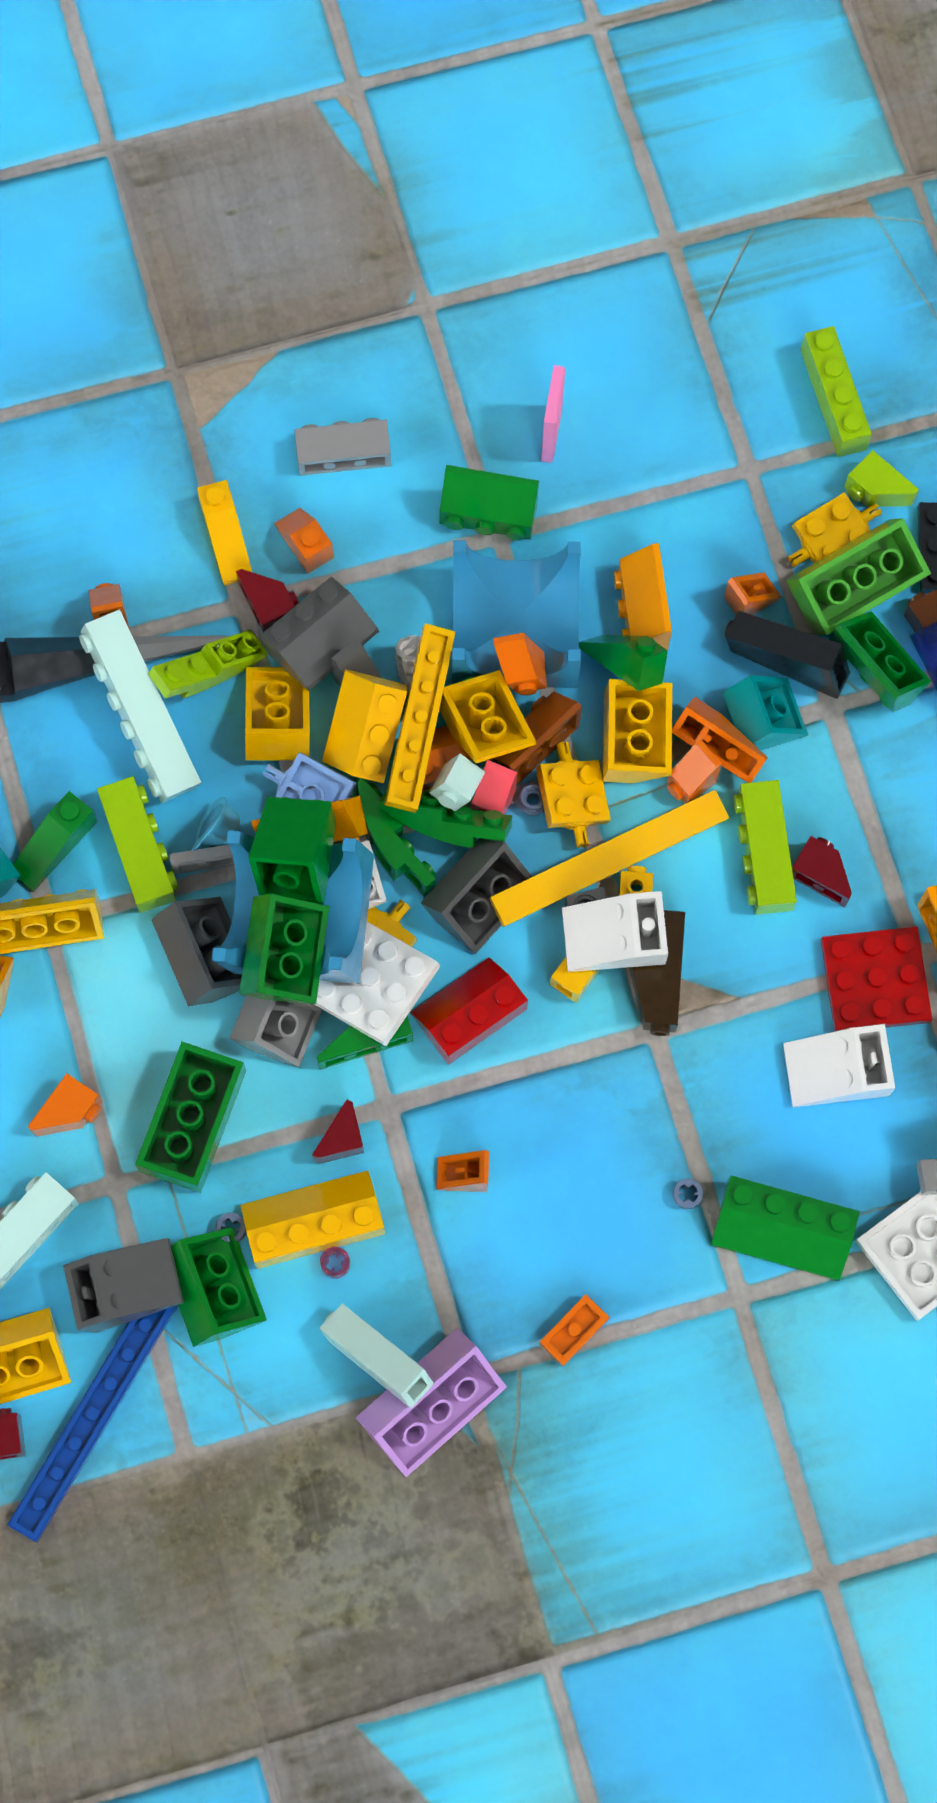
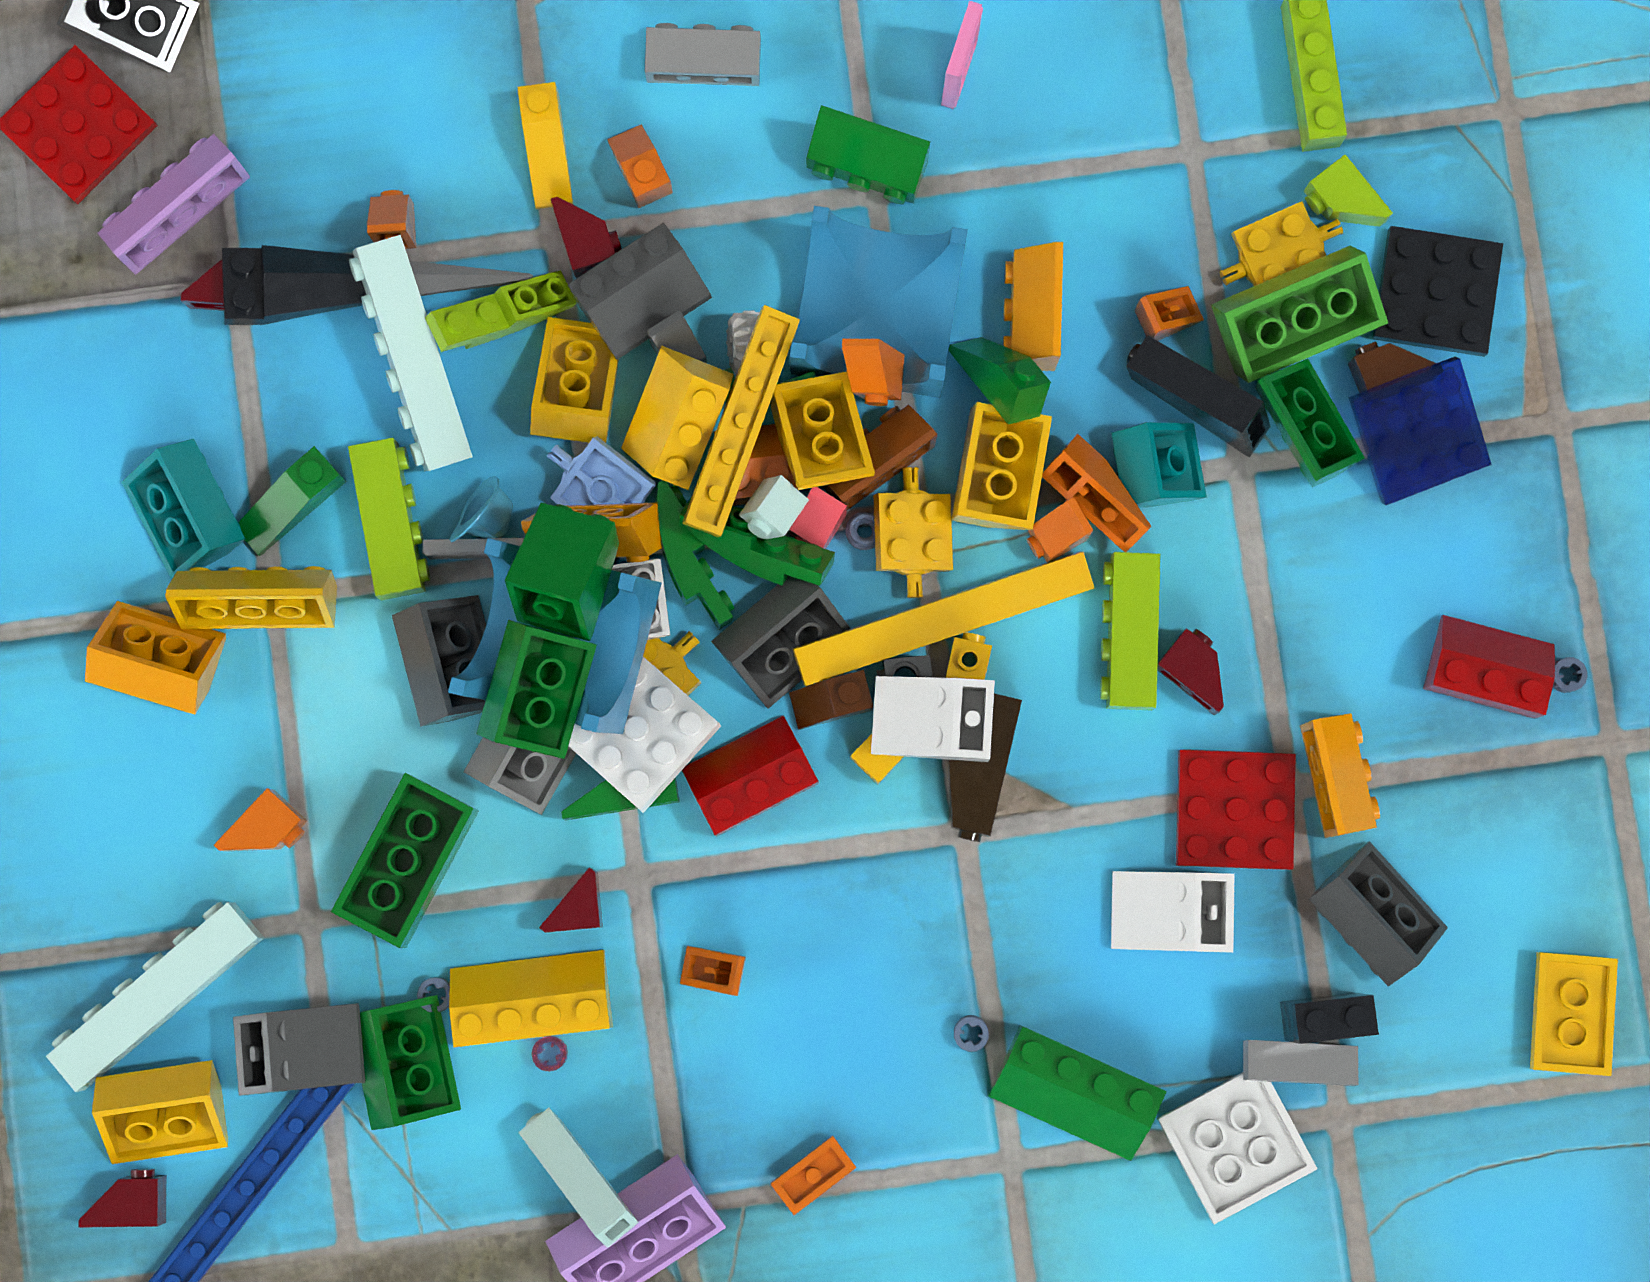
camera: 10 degrees right, 10 degrees up
(528, 937) = (831, 700): none -> reddish brown slope

